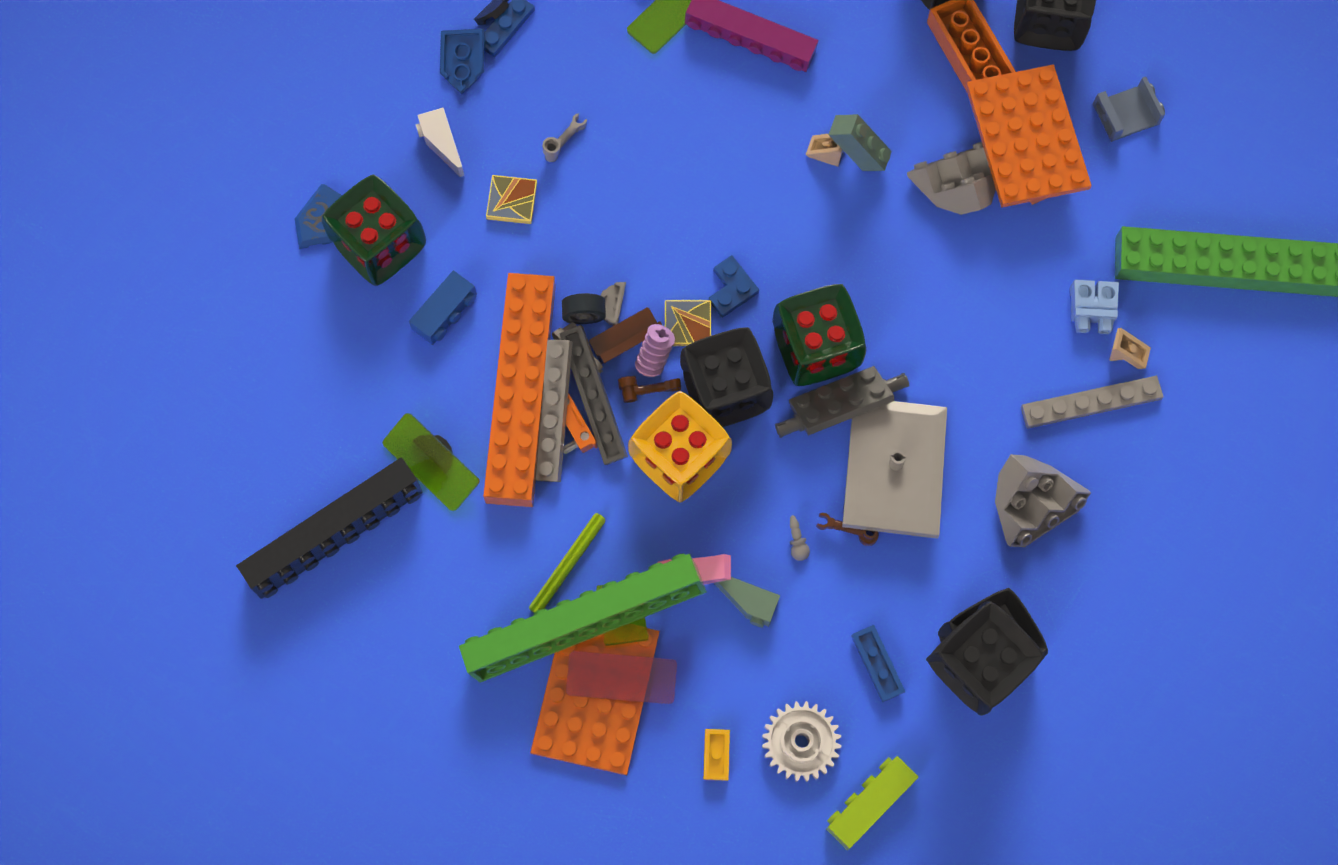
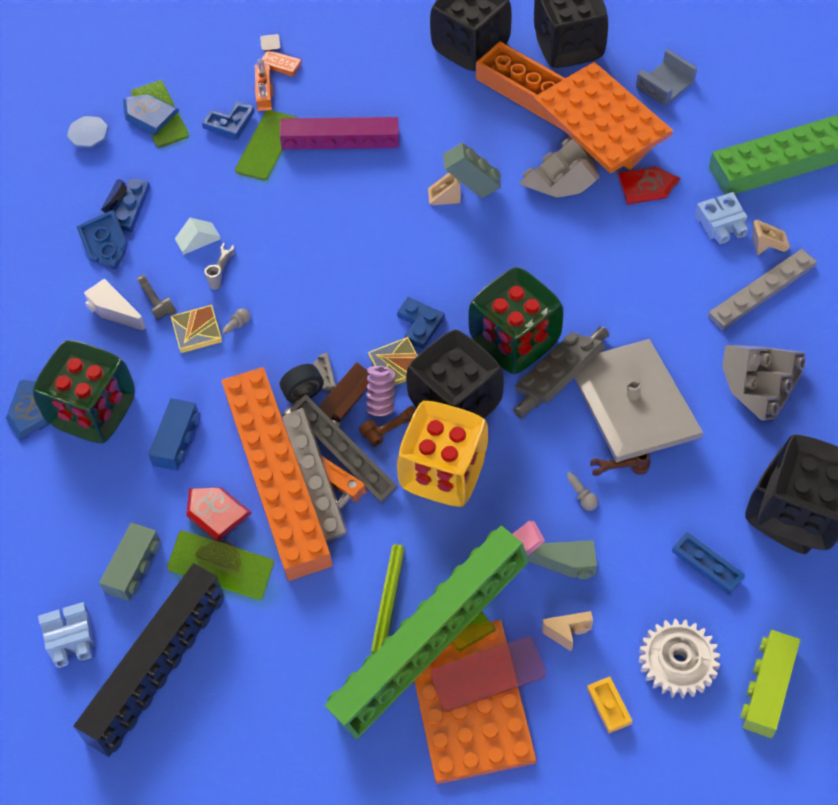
camera: 20 degrees left, 15 degrees down
(268, 468) = (70, 638): none -> light blue hips
(351, 422) = (130, 562): none -> sand green brick
(448, 404) = (215, 511): none -> tile
(488, 161) = (160, 308): none -> dark grey brick
(555, 91) = (196, 235): none -> light aqua slope
(559, 206) = (240, 318): none -> light grey bar
(709, 663) = (561, 627): none -> tan slope
(1039, 229) = (646, 184): none -> red tile

